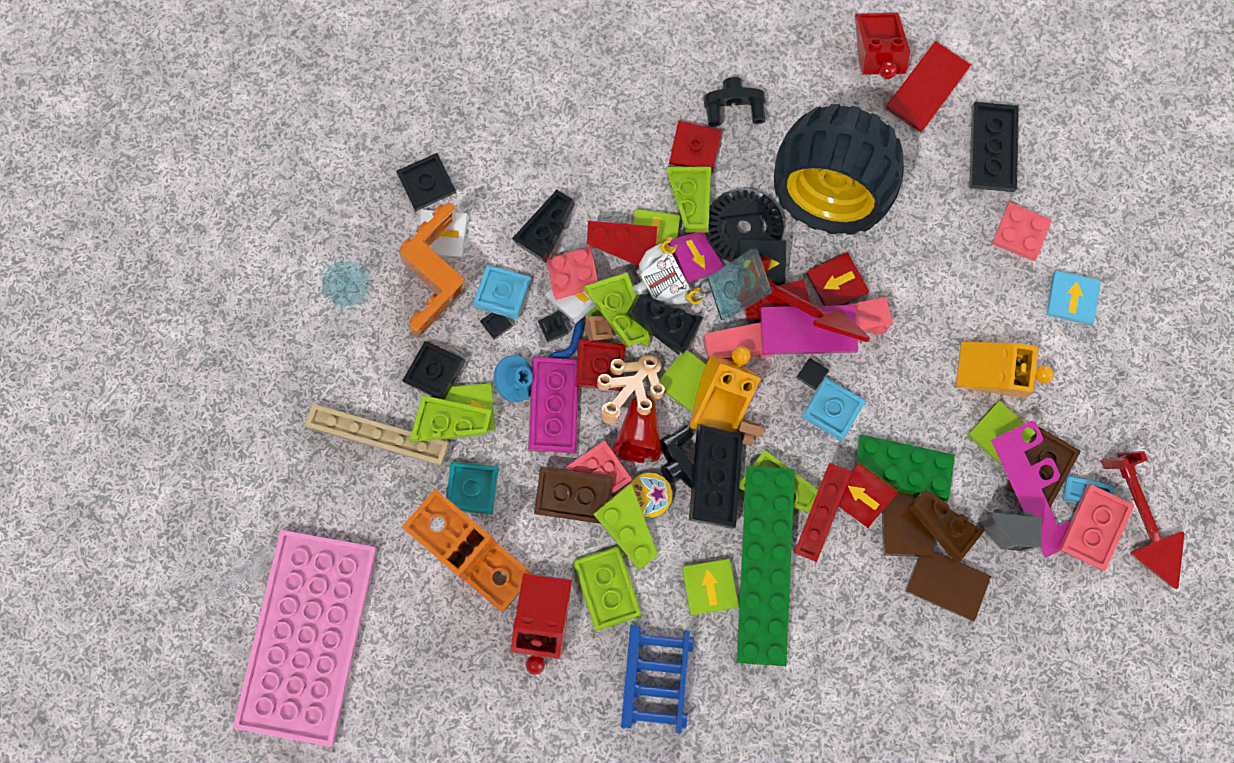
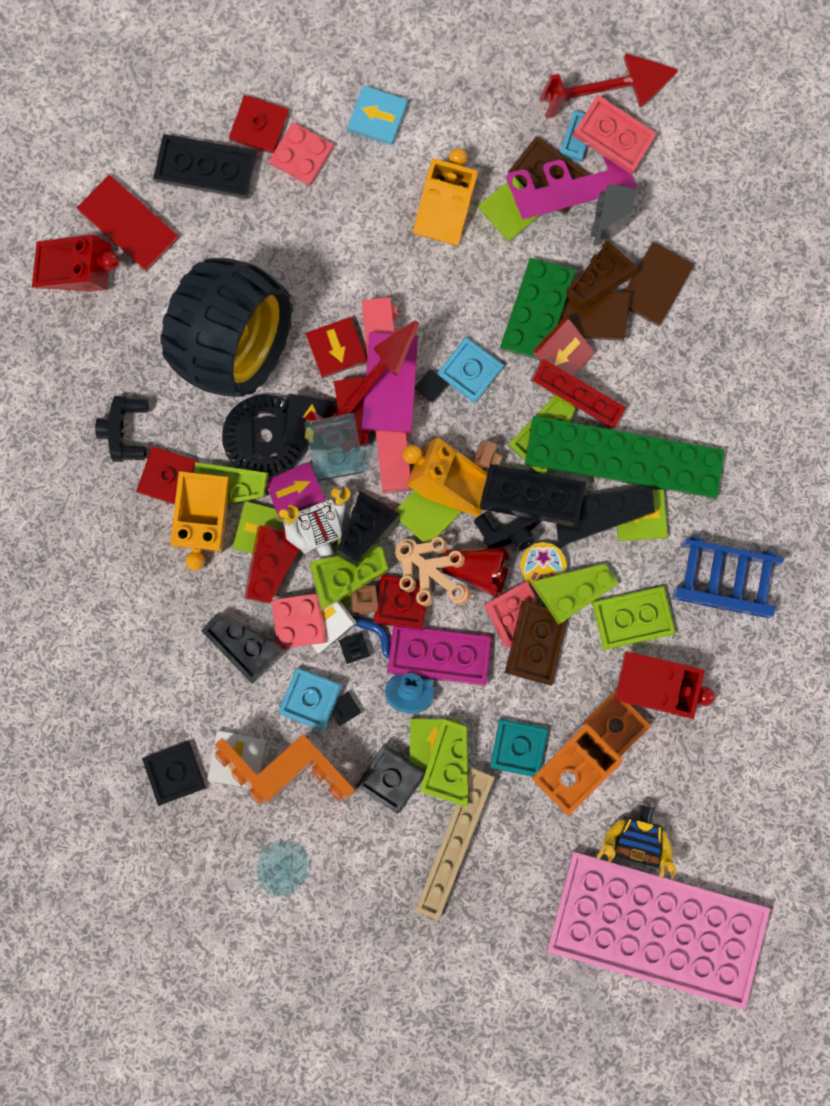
camera: 80 degrees left, 5 degrees up
(388, 609) = (639, 842): none -> torso
(661, 174) = (199, 510): none -> light orange slope
(709, 551) = (606, 511): none -> black wing
(1044, 190) = (258, 124): none -> red plate

